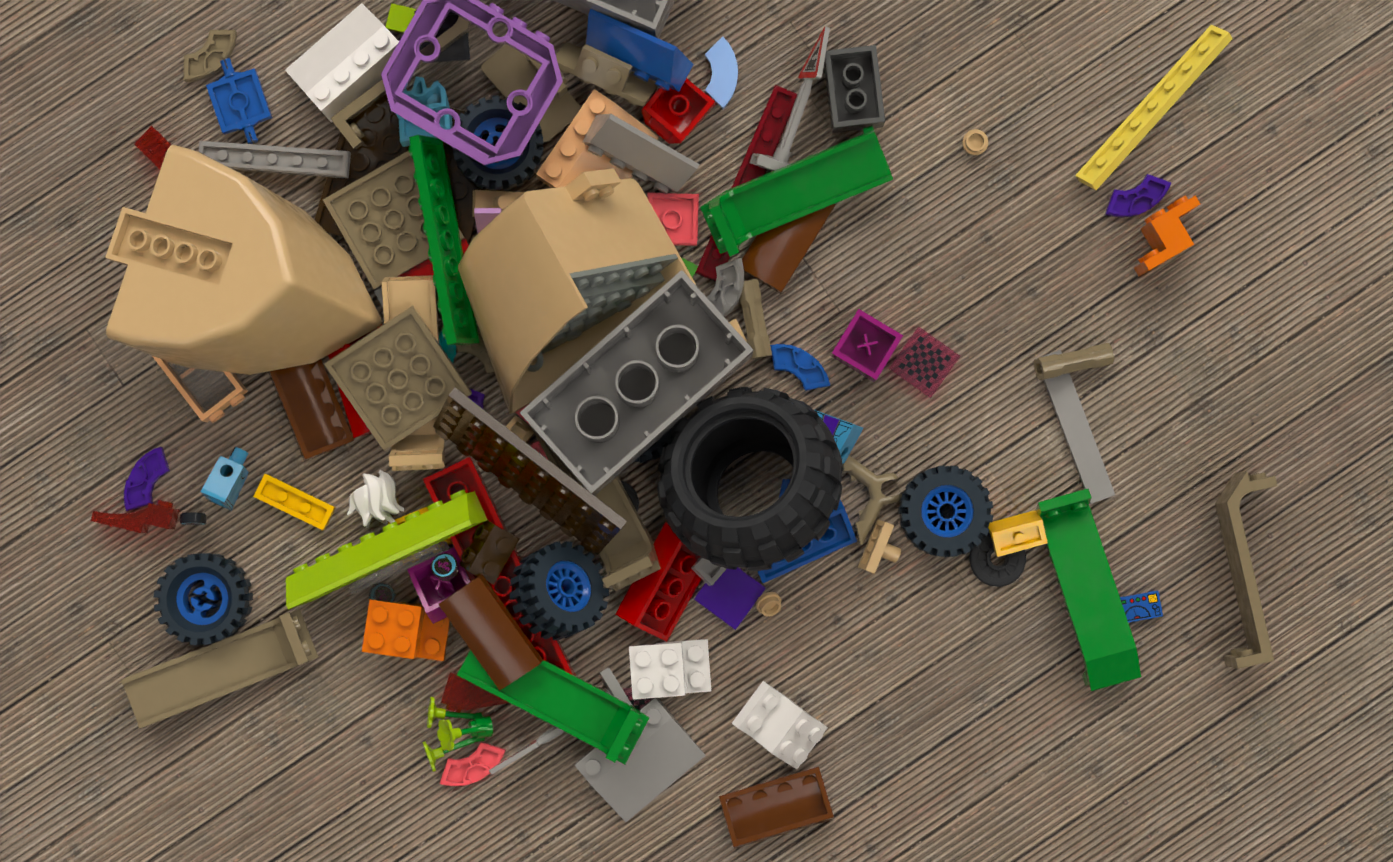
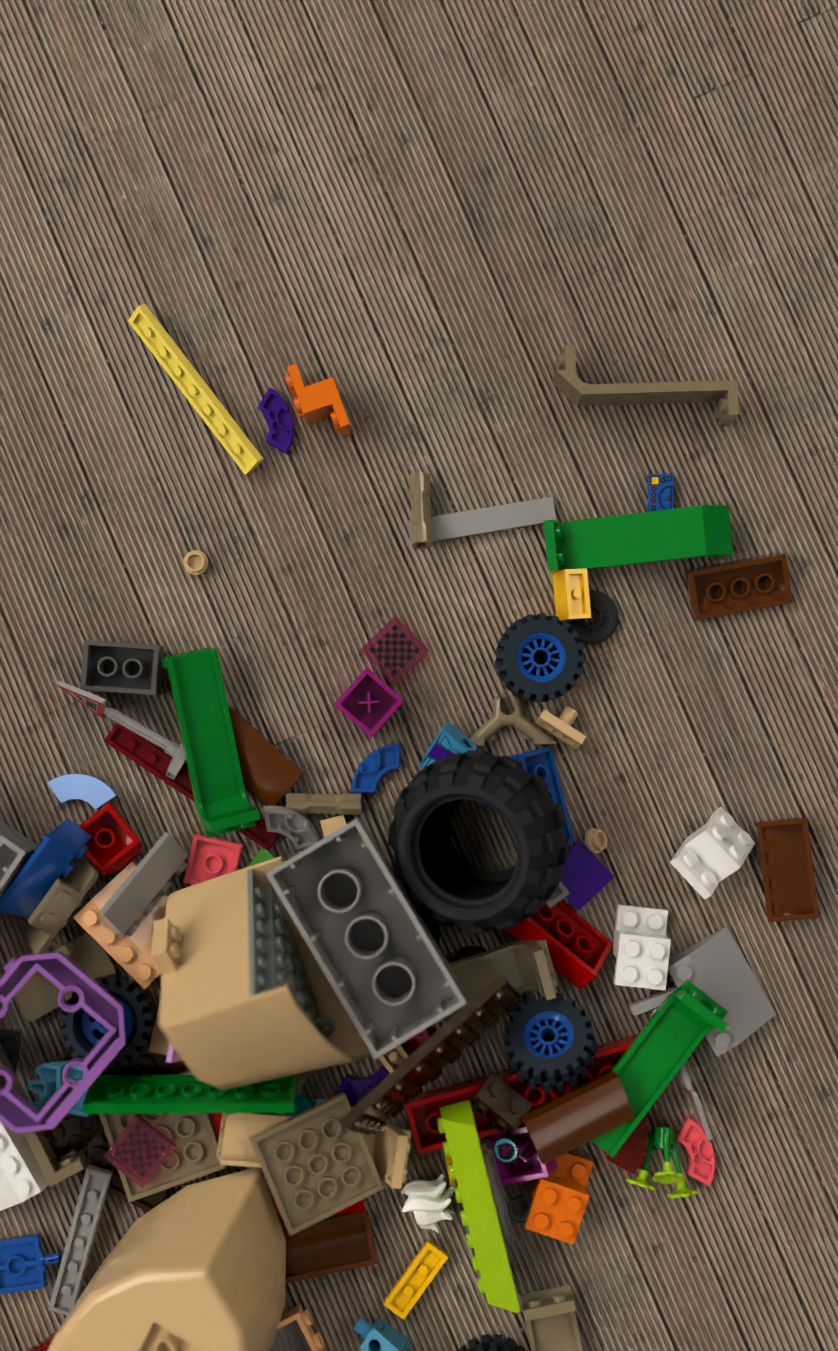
camera: 85 degrees left, 0 degrees up
(376, 200) = (139, 1151): none -> clear pink tile
(1059, 705) = (738, 586): none -> reddish brown slope

